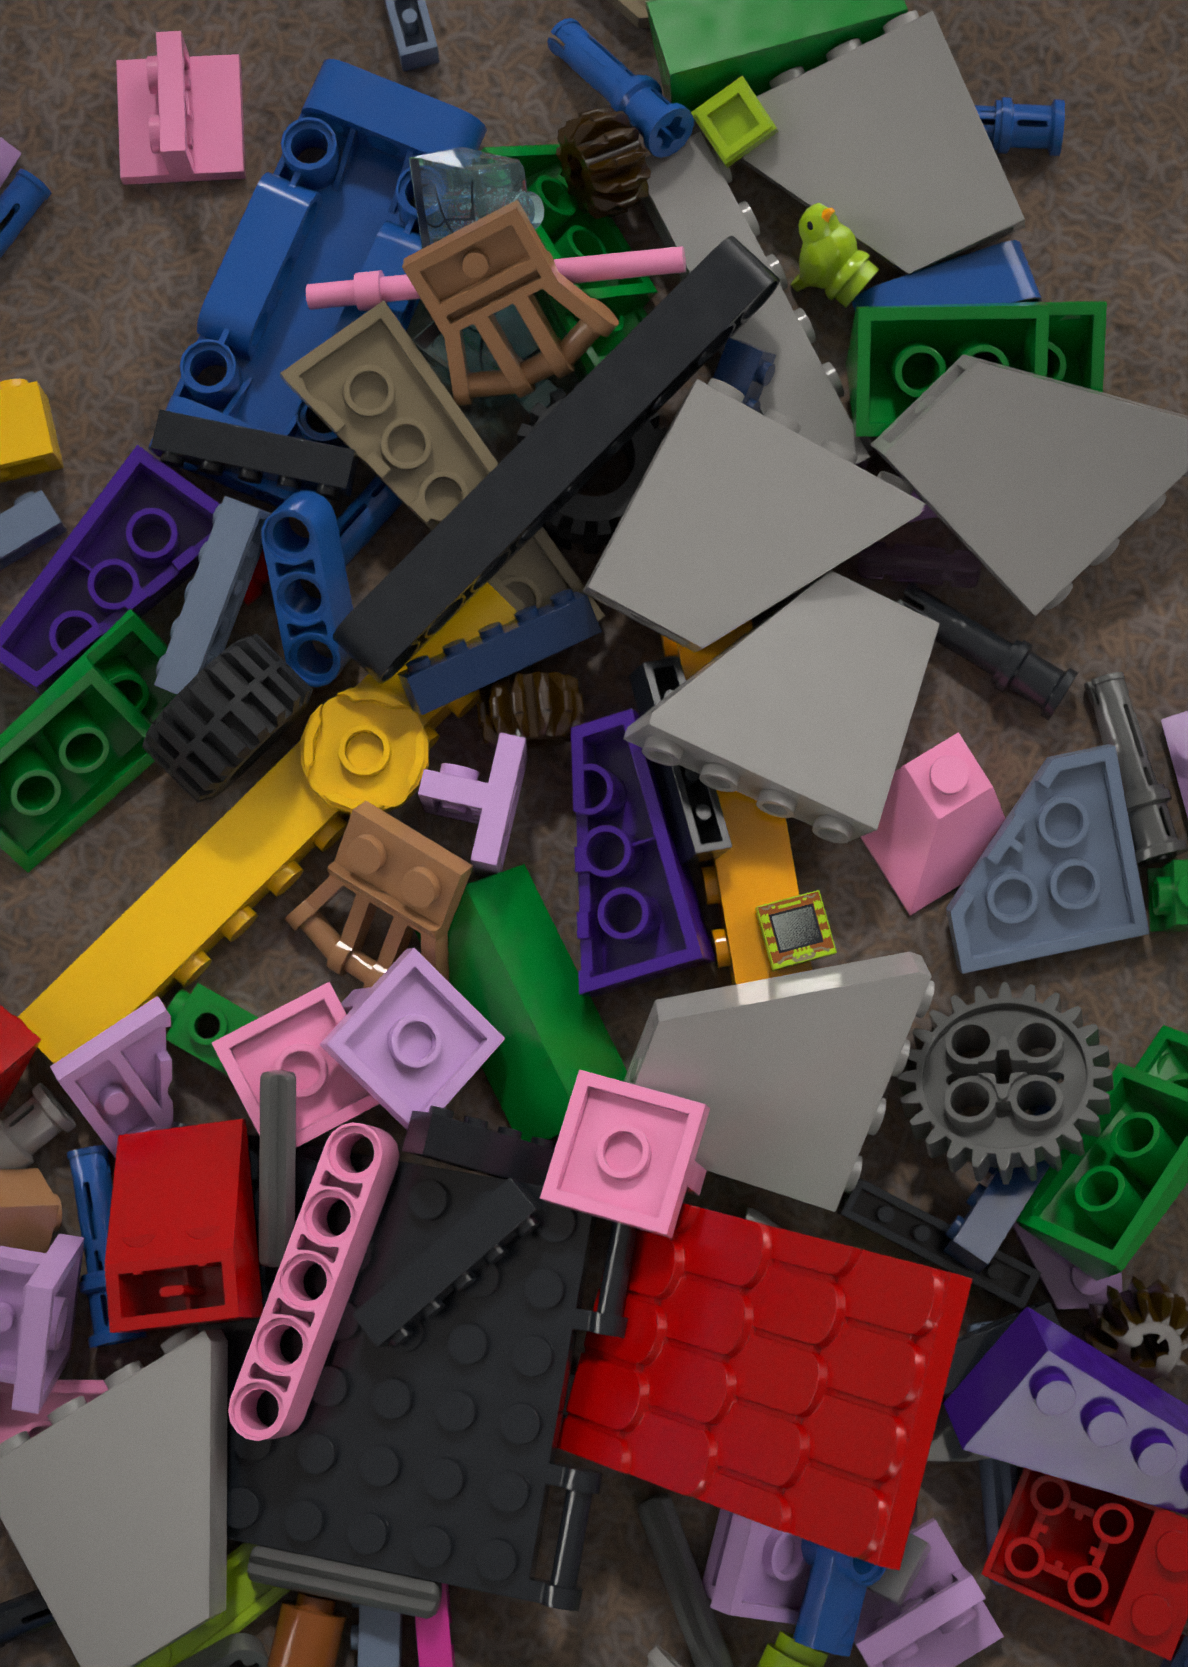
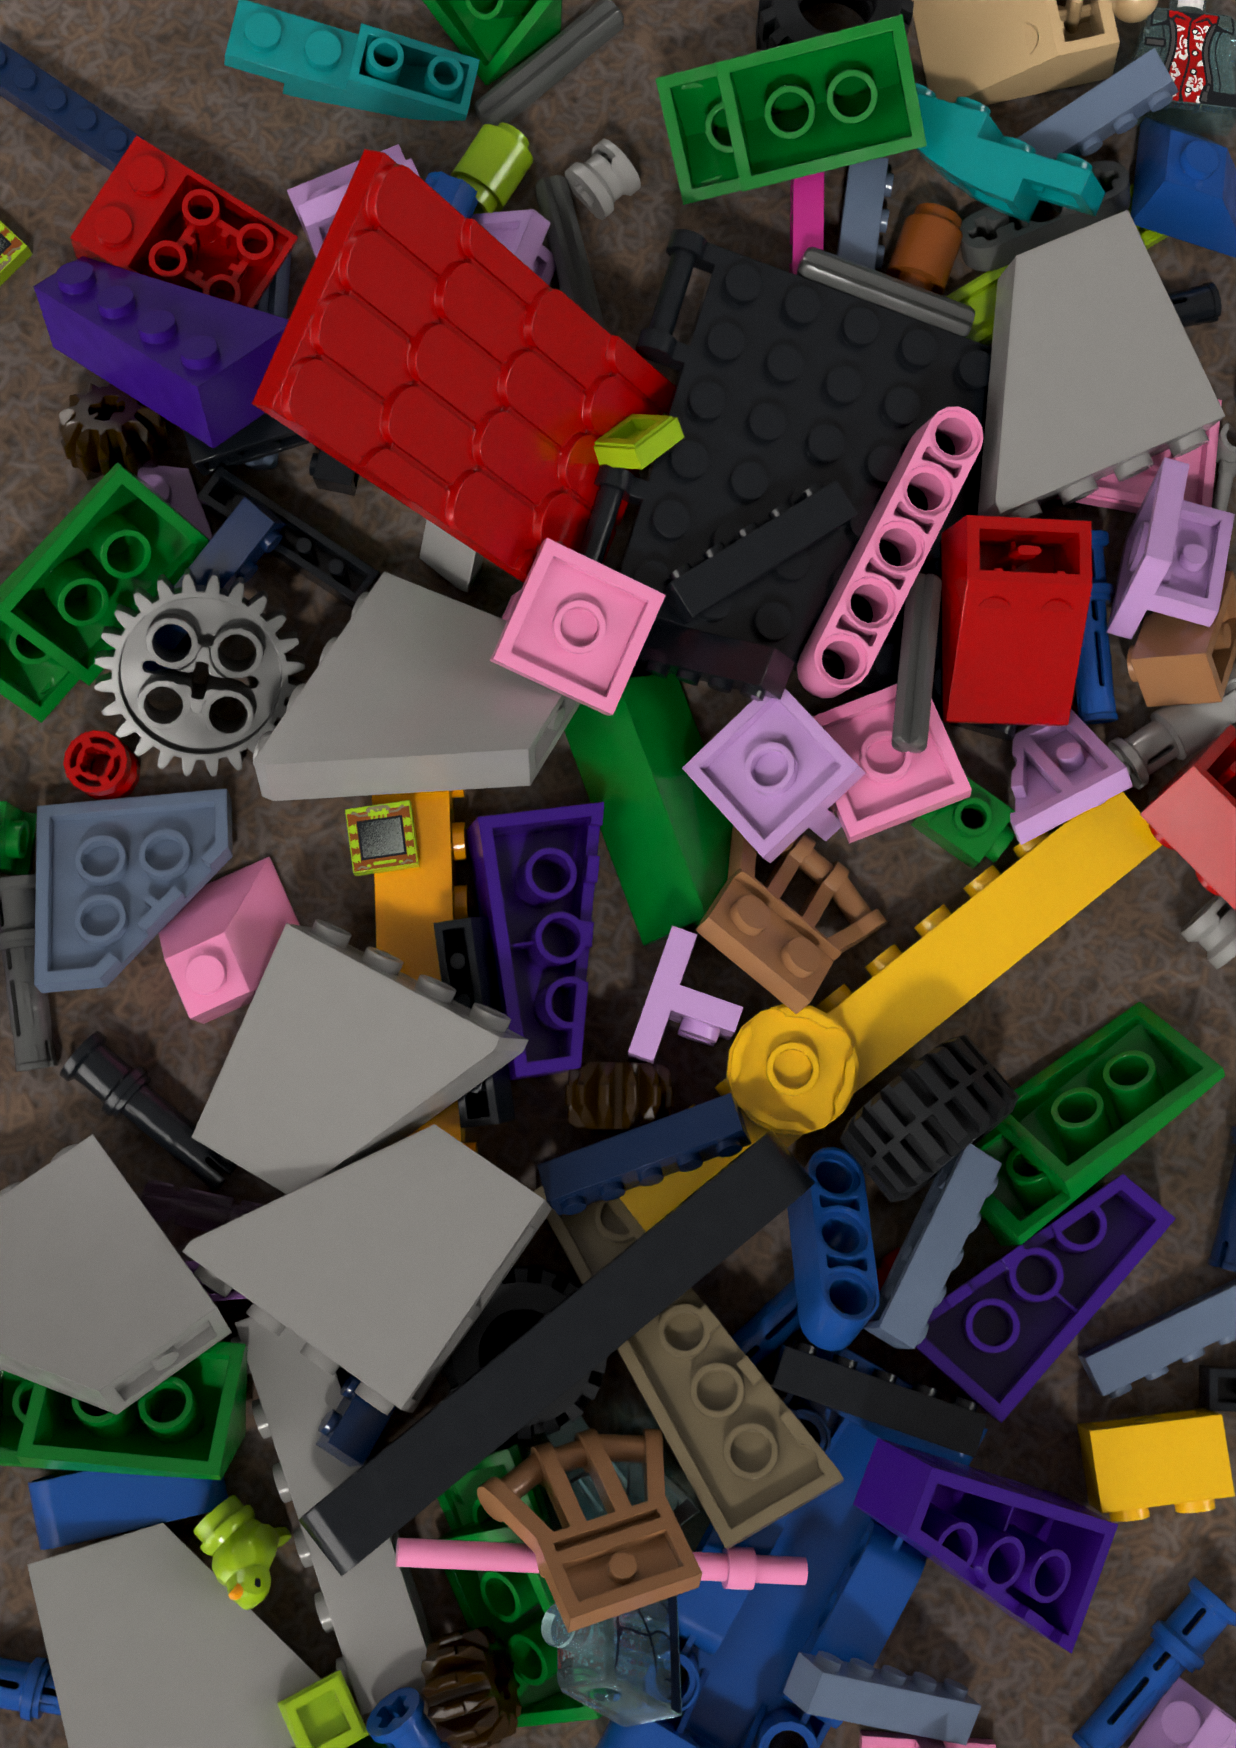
camera: 170 degrees left, 0 degrees up
(138, 346) = (997, 1535): none -> dark purple wedge
(228, 197) = (881, 1697): none -> sand blue piece
(587, 1364) = (638, 441): none -> lime tile
(1081, 985) = (109, 776): none -> red wheel

